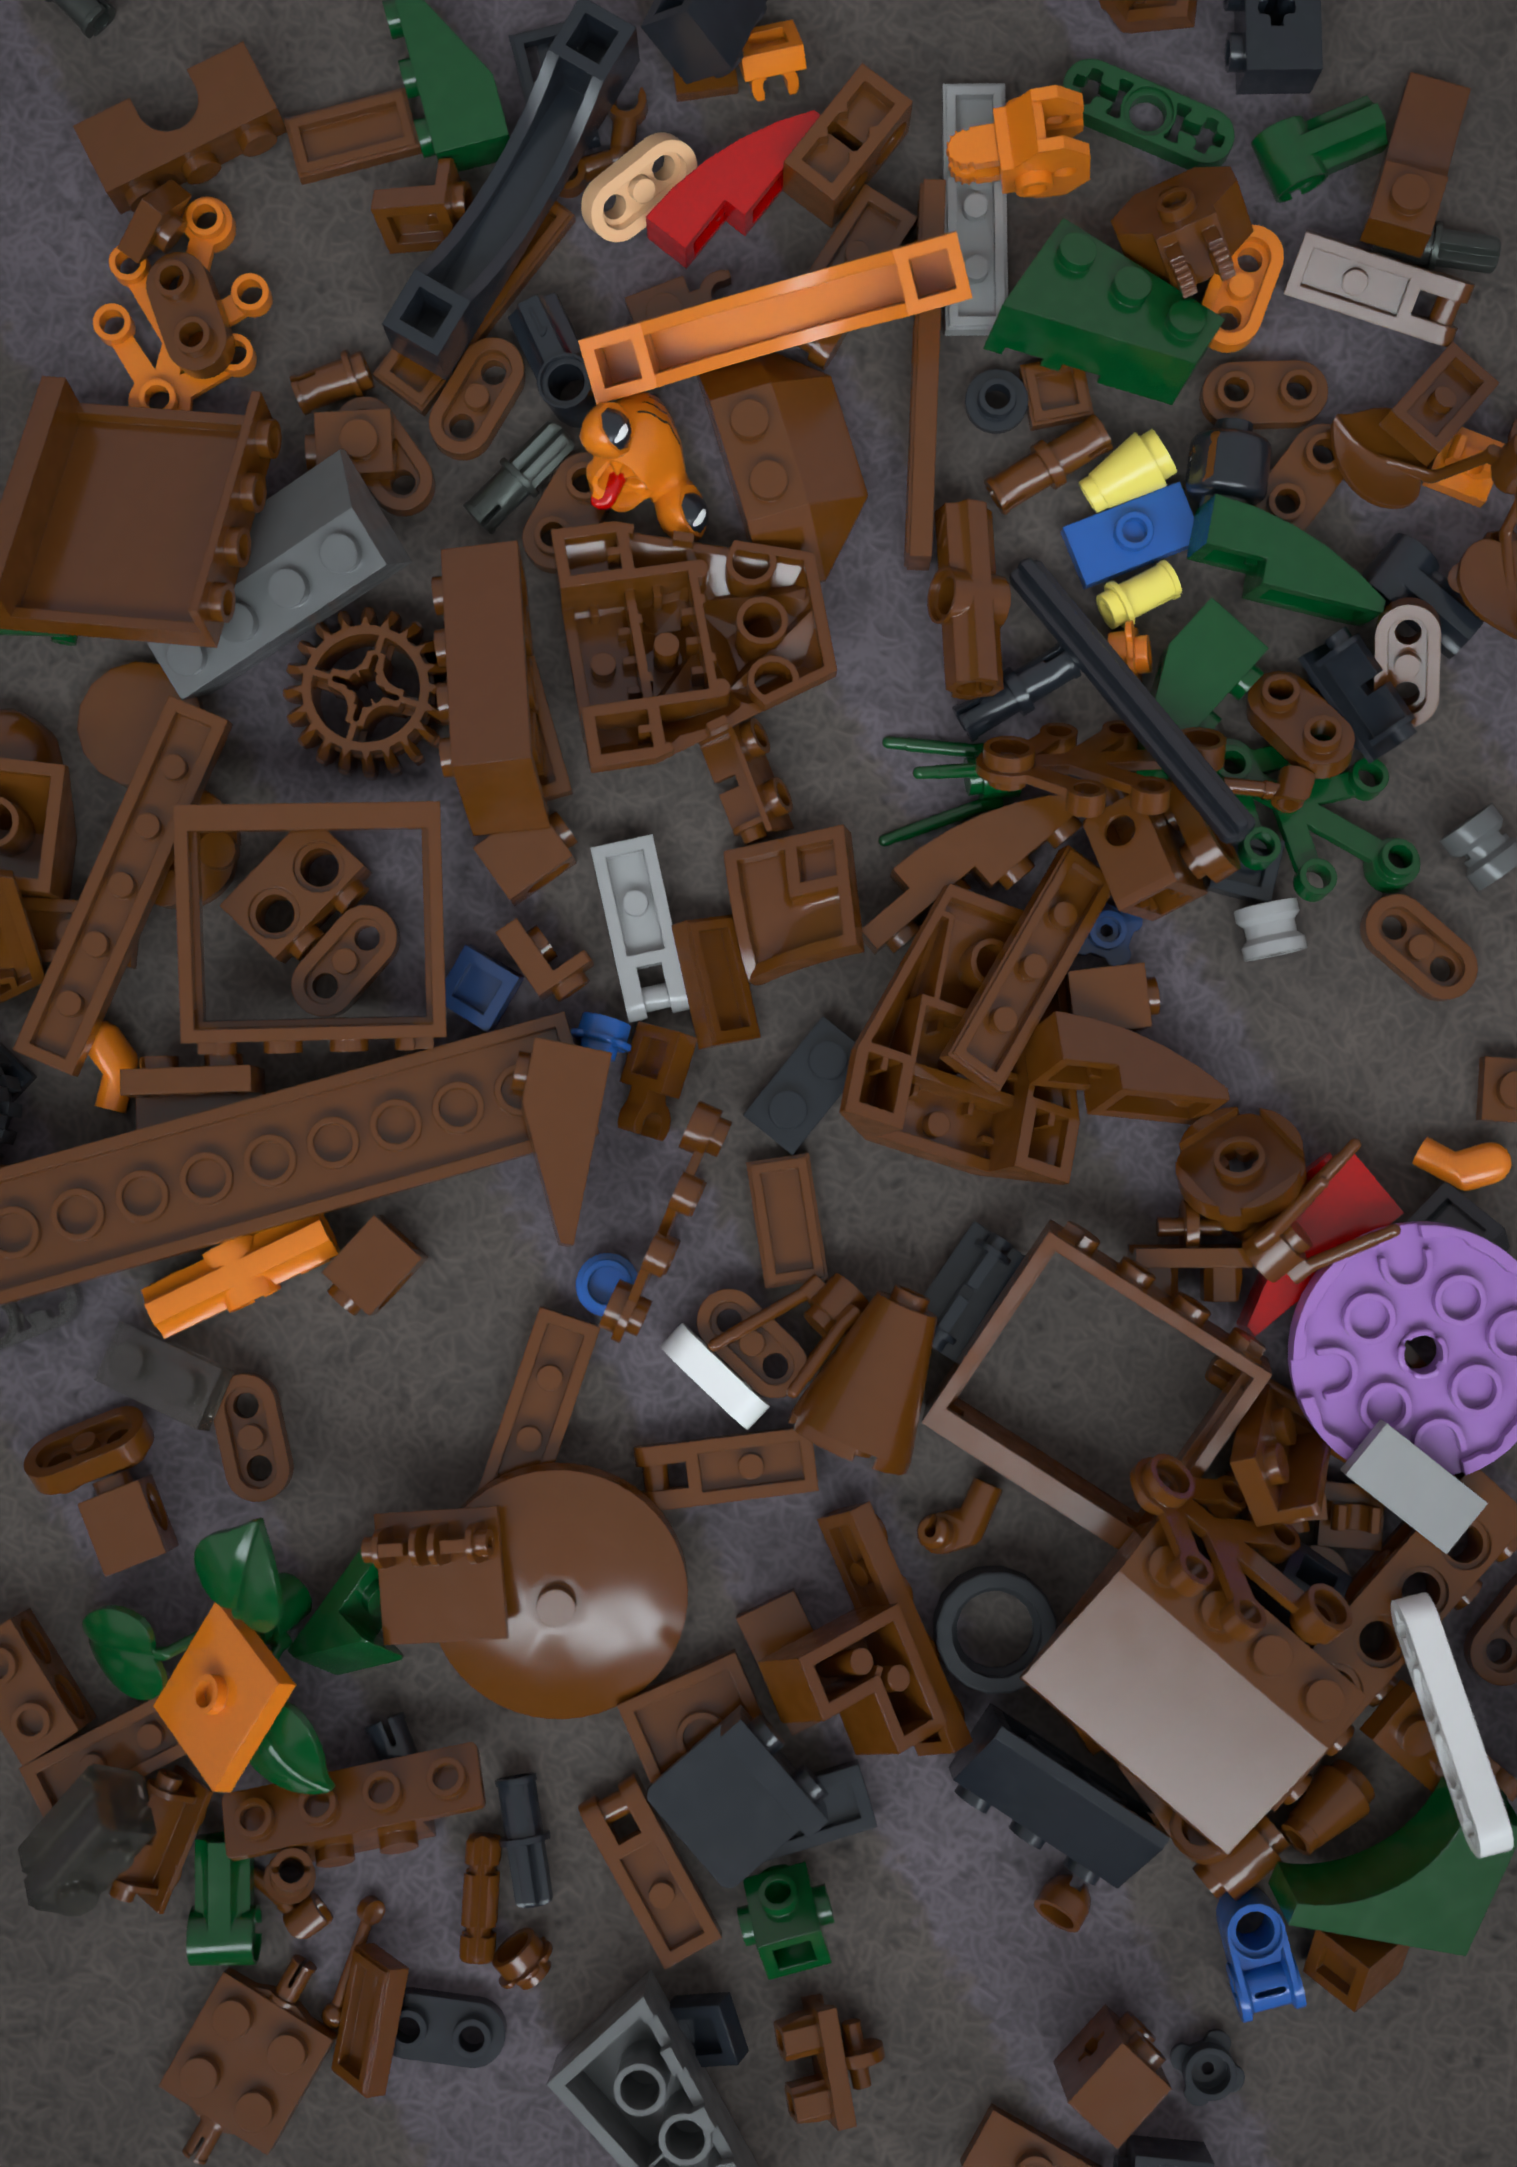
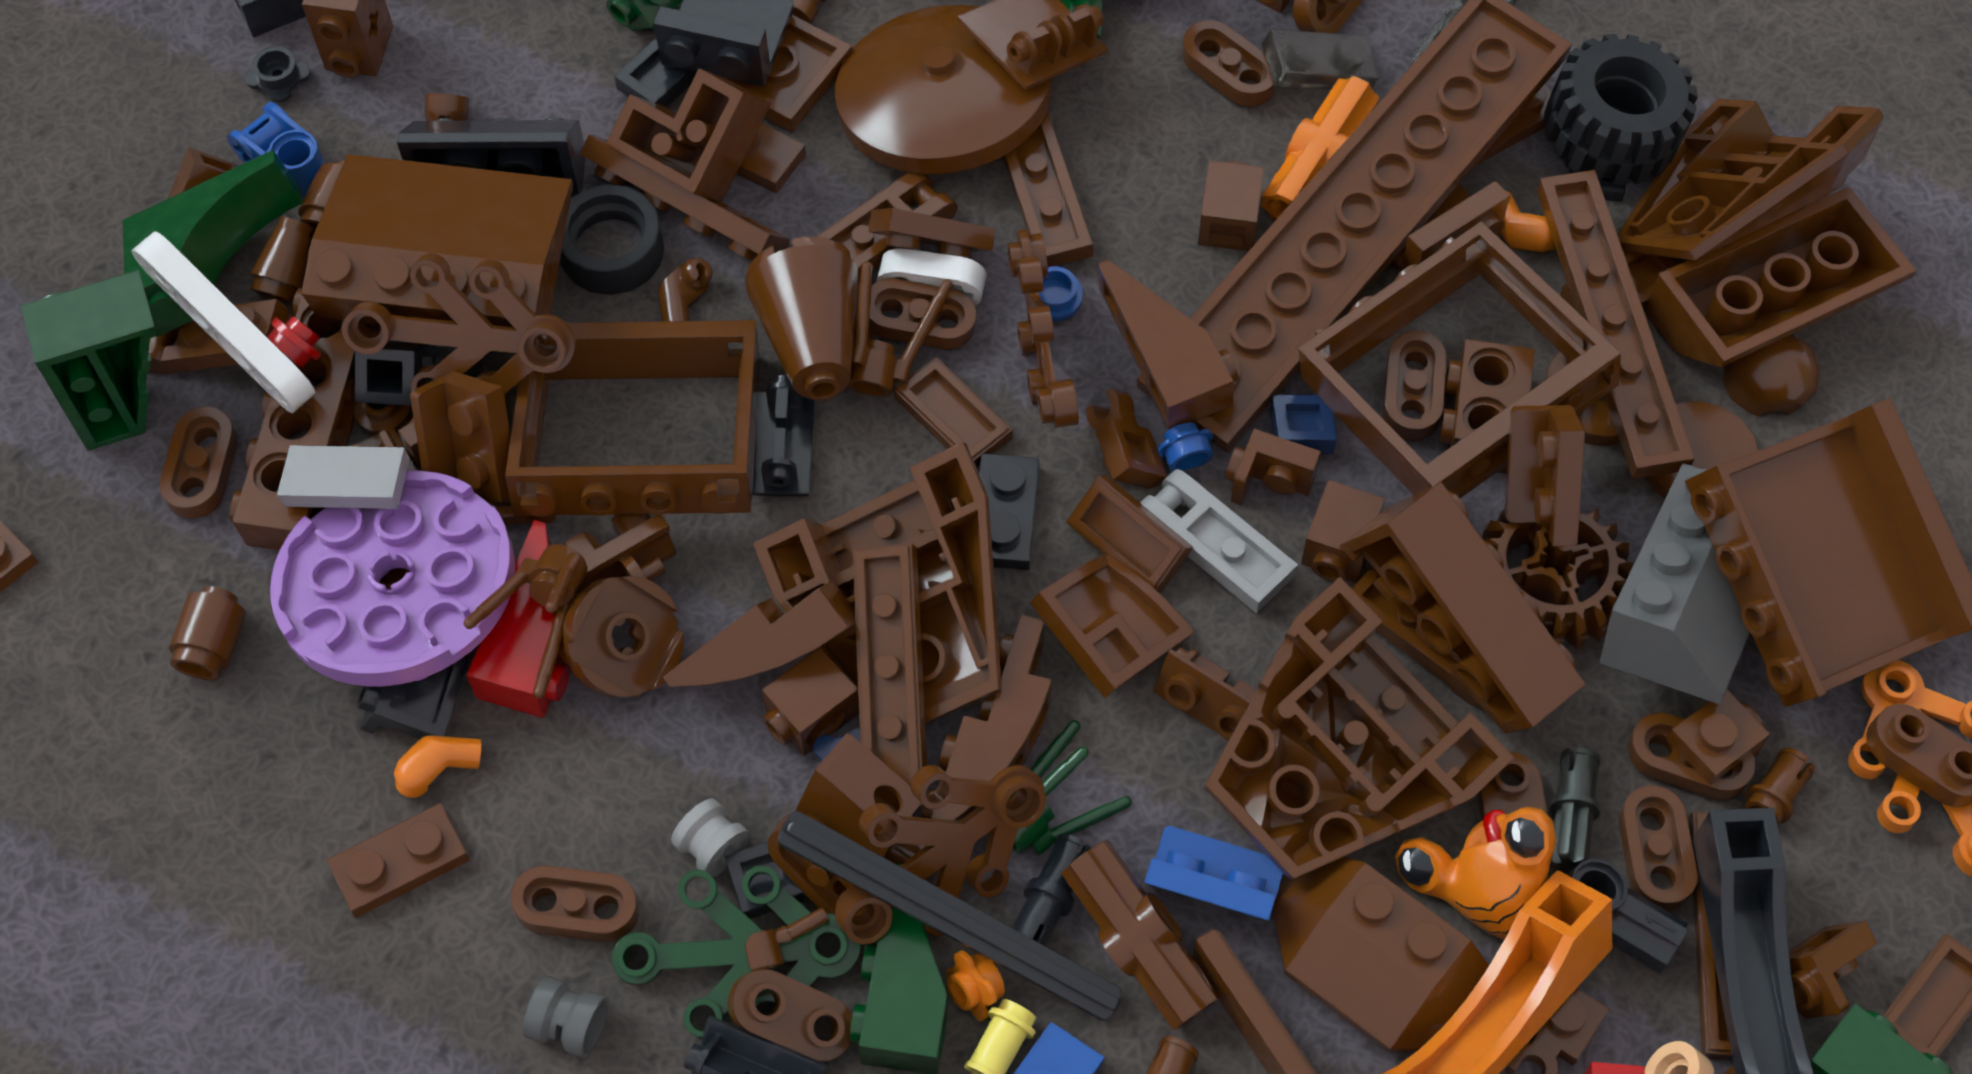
camera: 150 degrees right, 25 degrees down
(323, 744) = (1545, 470): none -> reddish brown bracket
(689, 1416) = (910, 229): none -> reddish brown plate
(875, 608) = (1215, 873): none -> blue bracket
(1385, 1668) = (295, 340): none -> red plate

